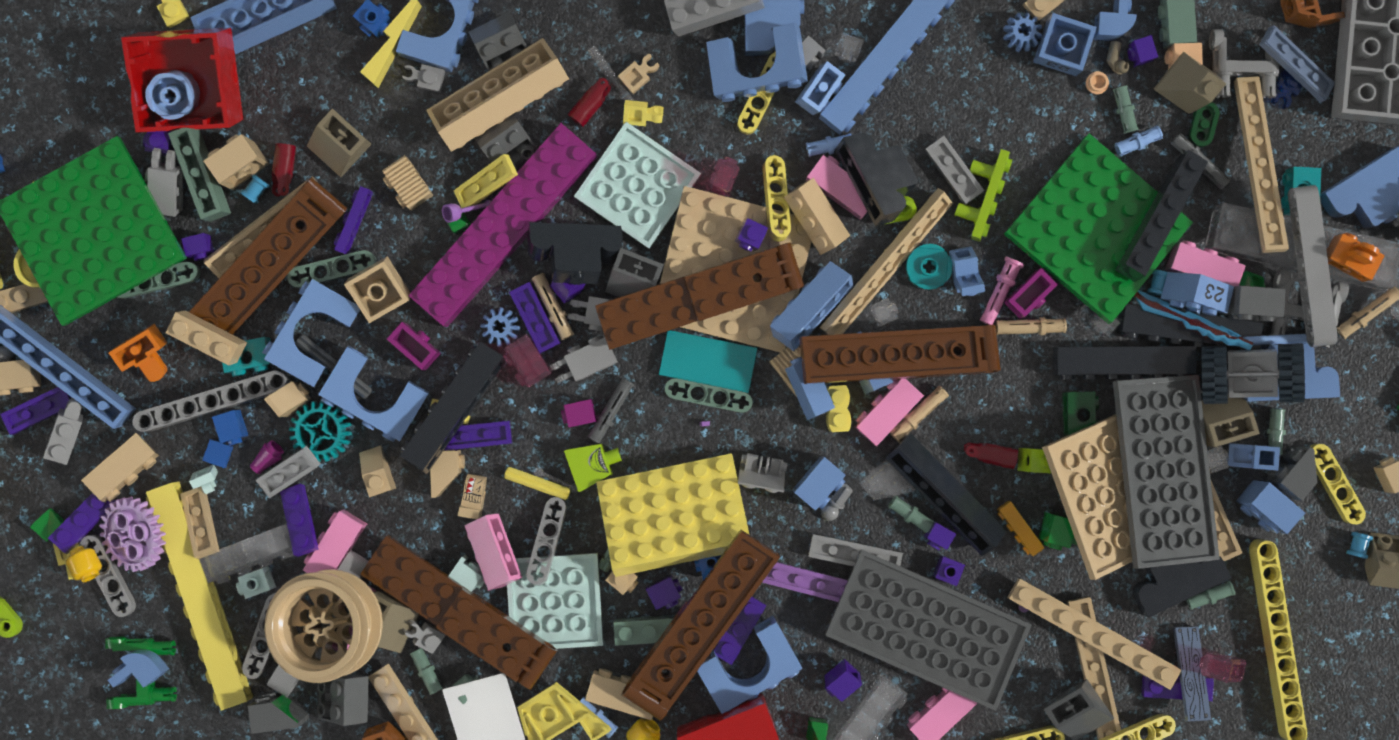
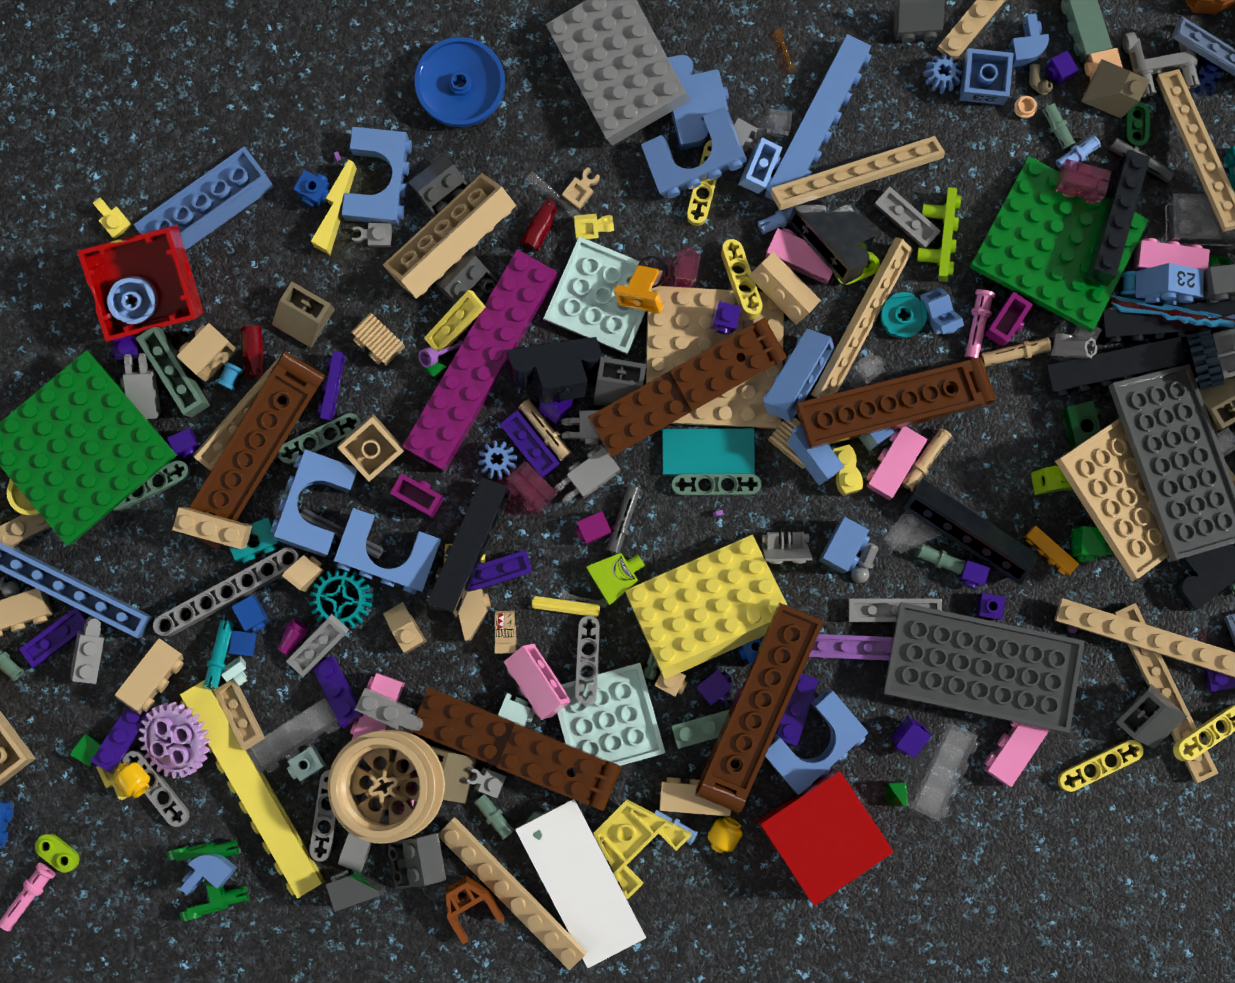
camera: 10 degrees left, 5 degrees down
(142, 353) = (149, 557): orange brick -> none
(187, 468) = (216, 663): none -> teal pin
(341, 552) = (388, 711): none -> light grey hinge
(671, 189) = (638, 293): none -> light orange piece
(914, 116) = (857, 173): none -> tan plate
(993, 454) = (1008, 483): dark red piece -> none
(1083, 333) = (1070, 347): none -> light grey piece
(1136, 171) = (1083, 181): none -> clear pink brick

